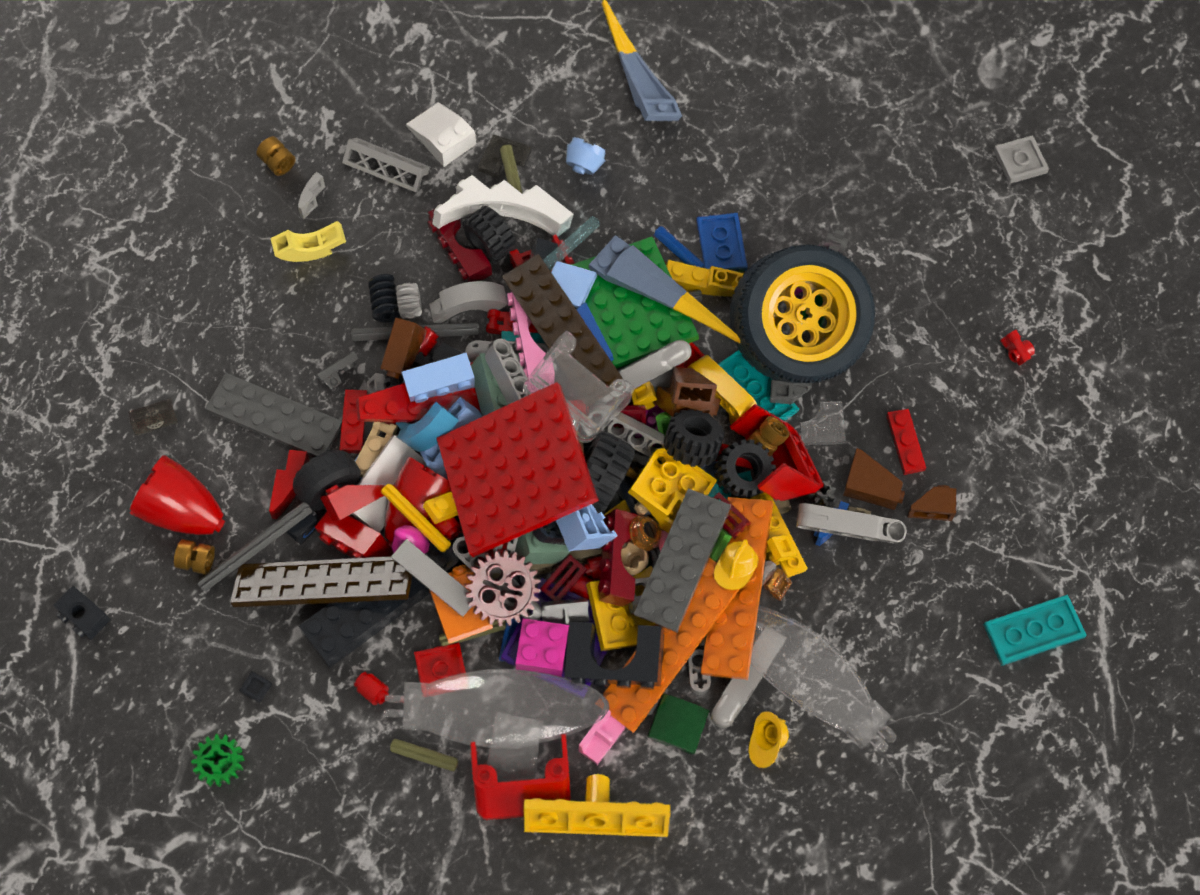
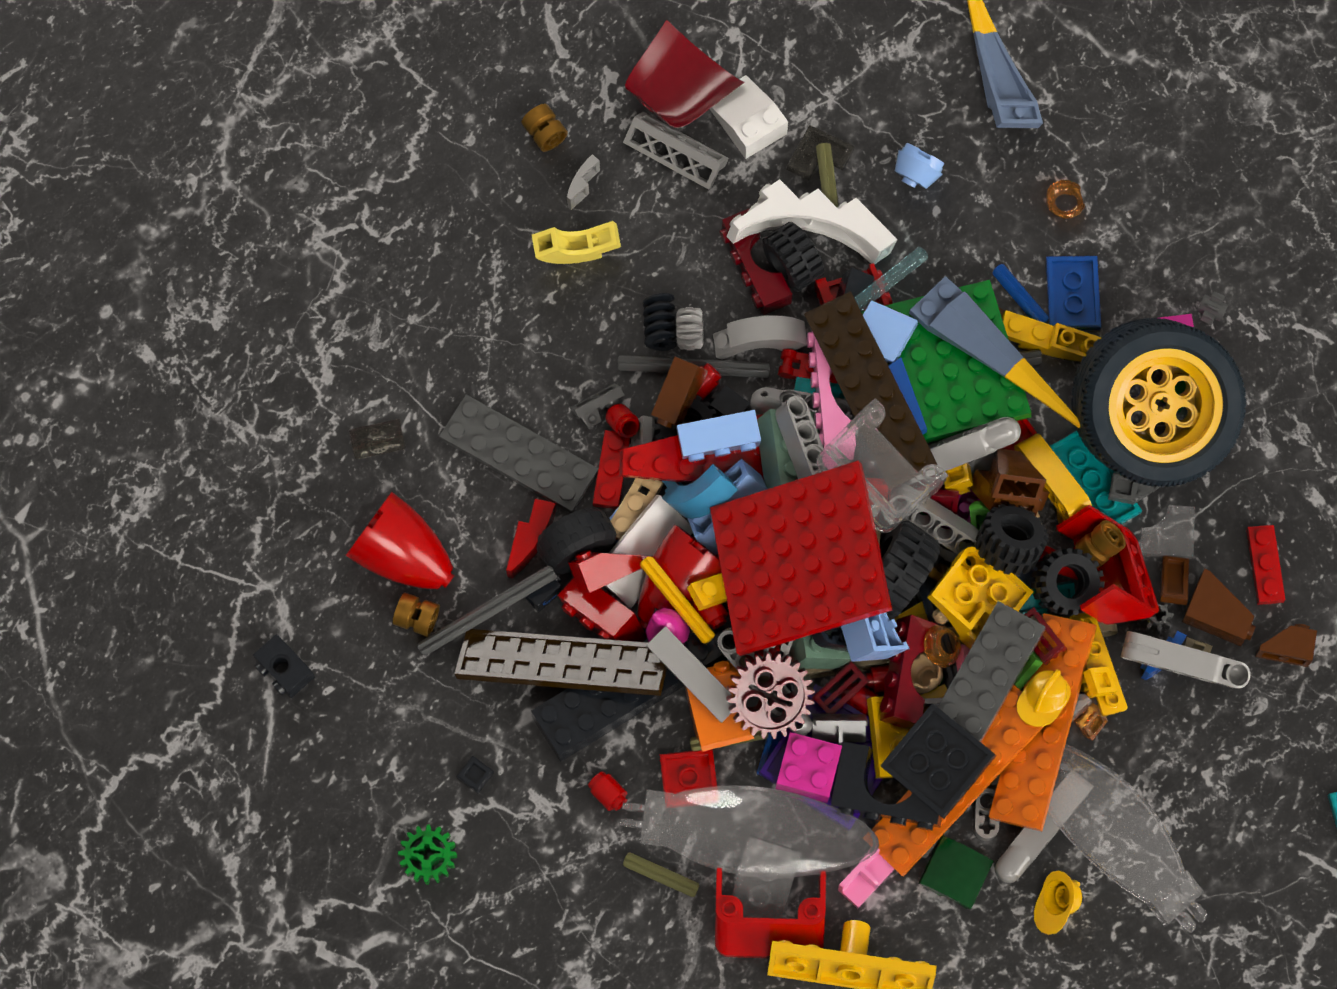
camera: 10 degrees right, 5 degrees up
(358, 379) = (622, 420): none -> red brick
(381, 109) = (678, 79): none -> dark red piece
(652, 627) = (938, 760): none -> black plate
(706, 163) = (1064, 187): none -> clear orange piece
(833, 461) = (1174, 580): none -> reddish brown tile

